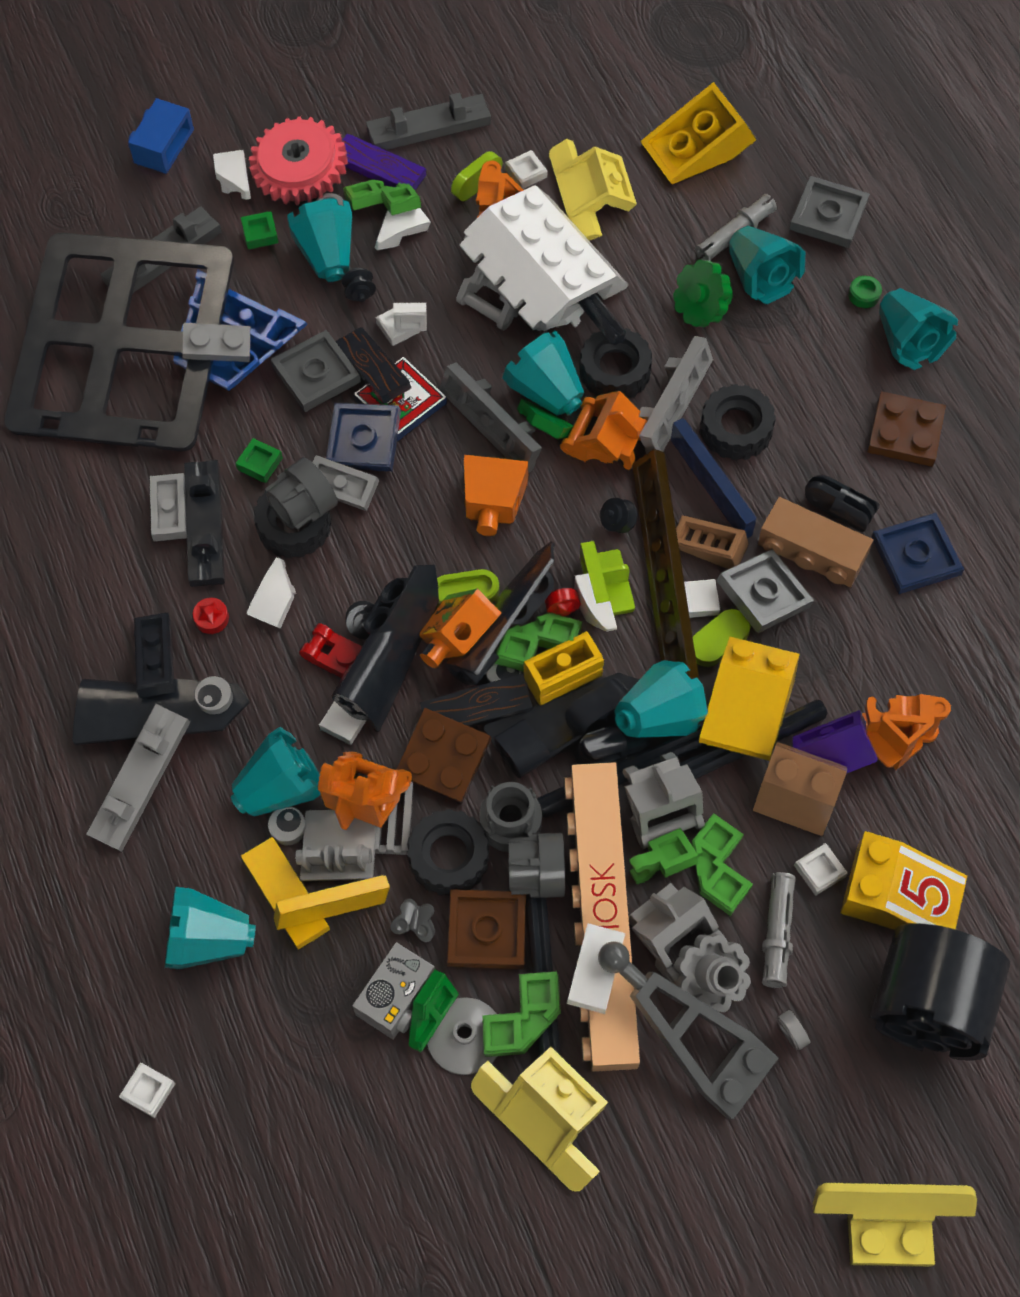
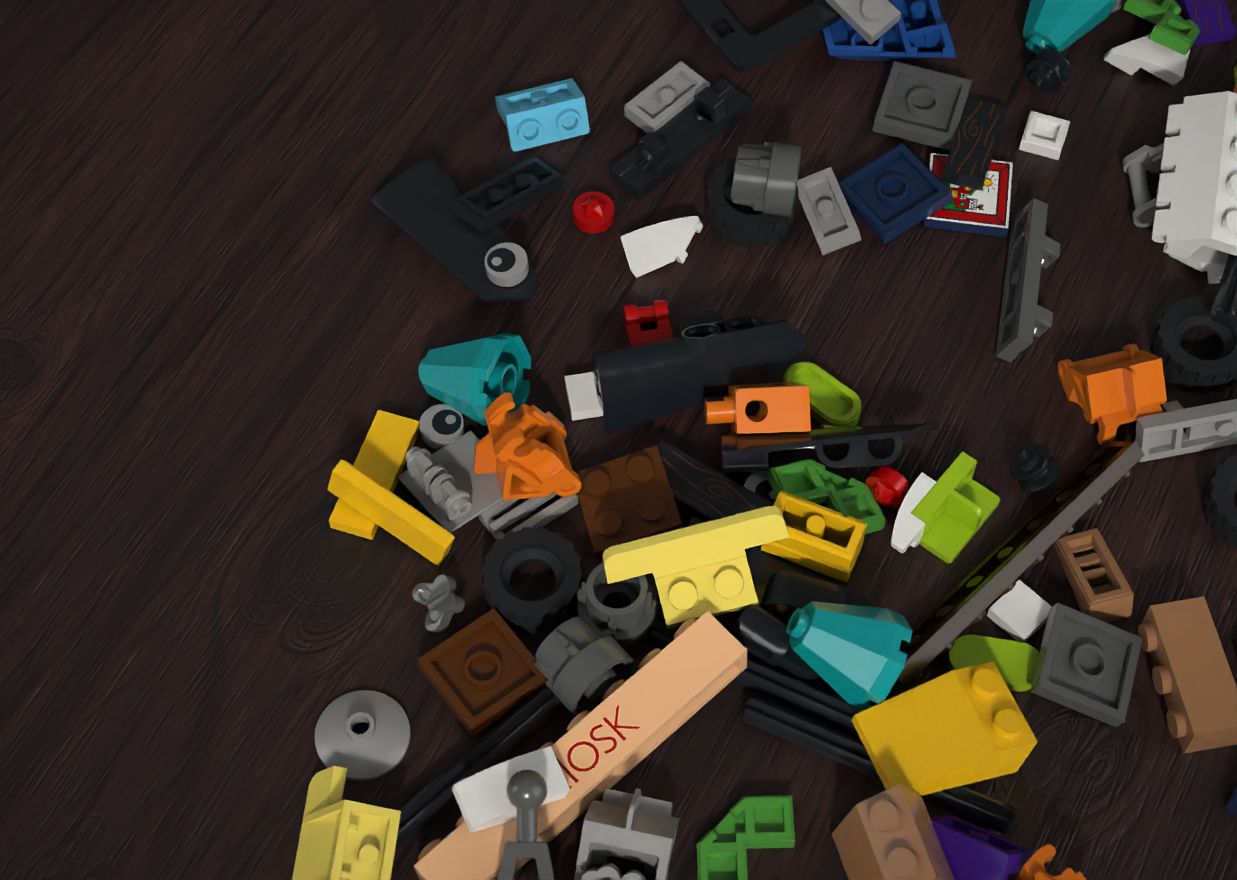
camera: 50 degrees right, 5 degrees down
(106, 586) = (543, 114): none -> medium azure bracket
(138, 777) = (380, 271): light grey hinge -> none
(147, 1090) = (96, 504): white tile -> none
(205, 930) = (273, 428): teal cone -> none
(259, 460) = (784, 127): green plate -> none
(390, 993) = (351, 636): light grey brick -> none
(410, 317) = (1055, 132): white tile -> none
(430, 1009) = (358, 678): green tile -> none
(493, 490) = (947, 340): orange torso -> none
(518, 1031) = (399, 775): bright green tile -> none
(541, 747) = (699, 564): none -> light yellow plate
(544, 420) = (1072, 329): green tile -> none
(546, 375) = (1118, 287): teal cone -> none
(660, 791) = (758, 717): light grey piece -> none
(666, 853) = (704, 783): bright green plate -> none
(712, 477) = (1165, 525): dark blue tile -> none

